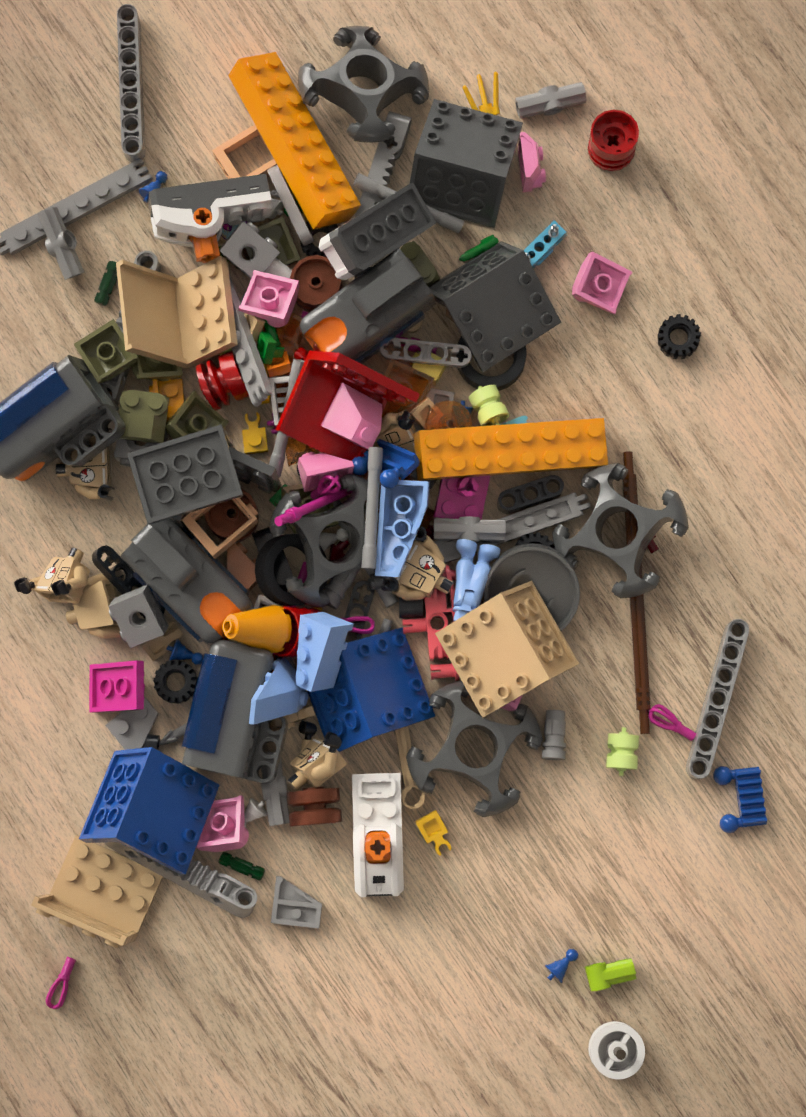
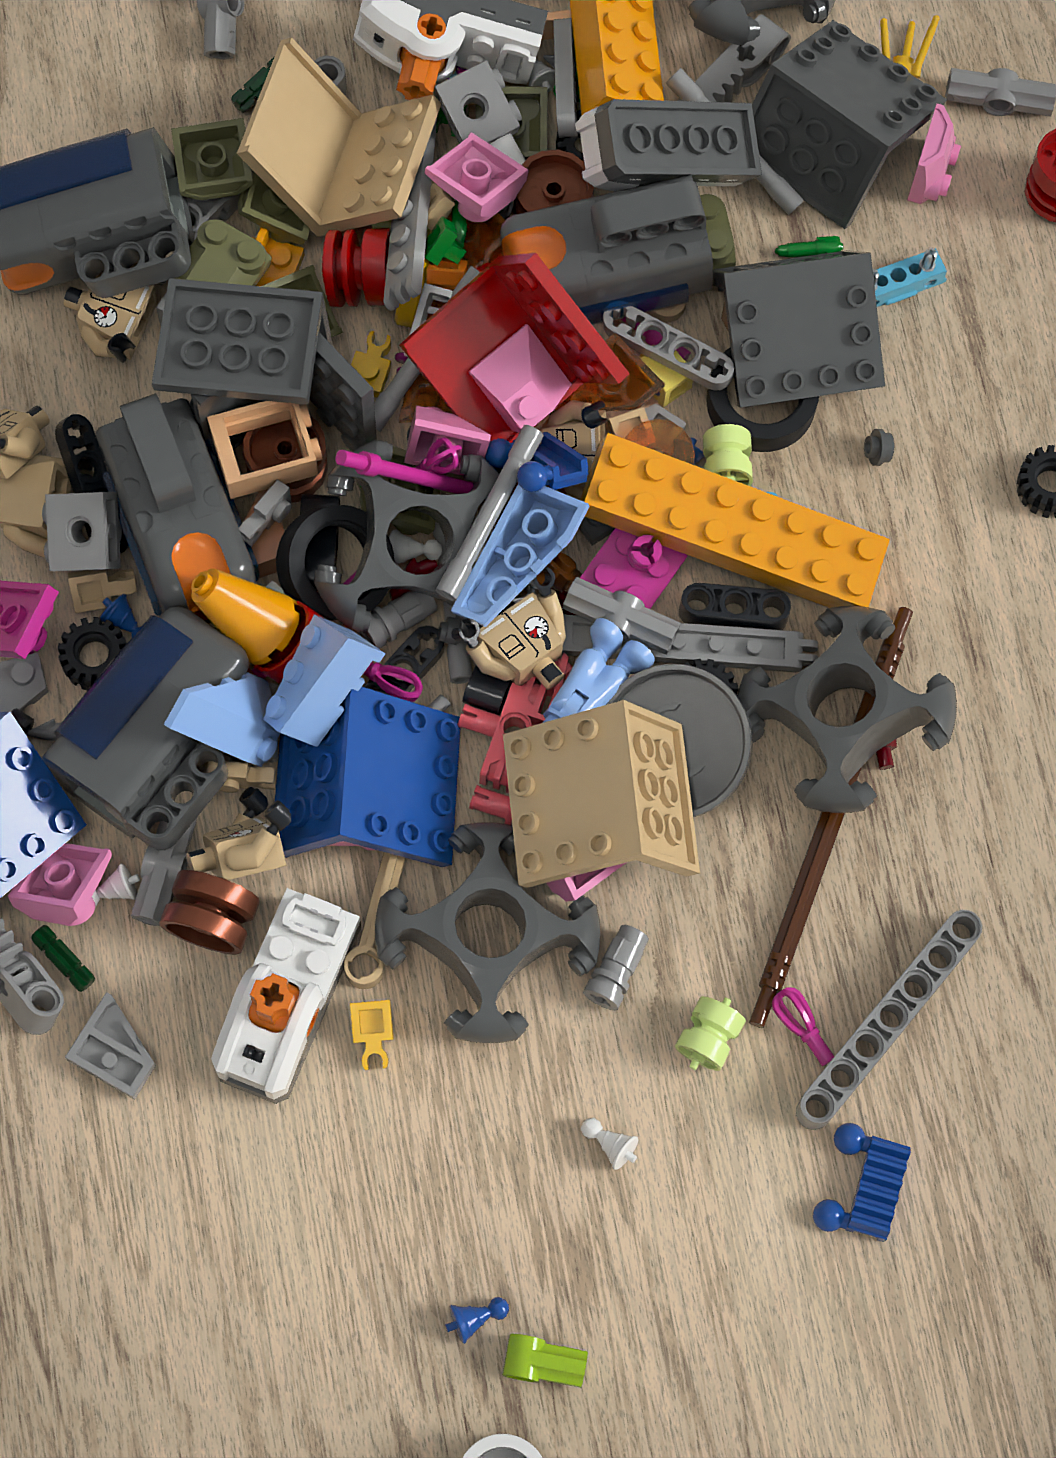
camera: 20 degrees right, 10 degrees down
(241, 553) = (270, 508): none -> light grey plate
(571, 358) = (879, 447): none -> dark grey plate
(597, 837) = (616, 1146): none -> white piece
(600, 282) = (967, 359): bright pink slope -> none

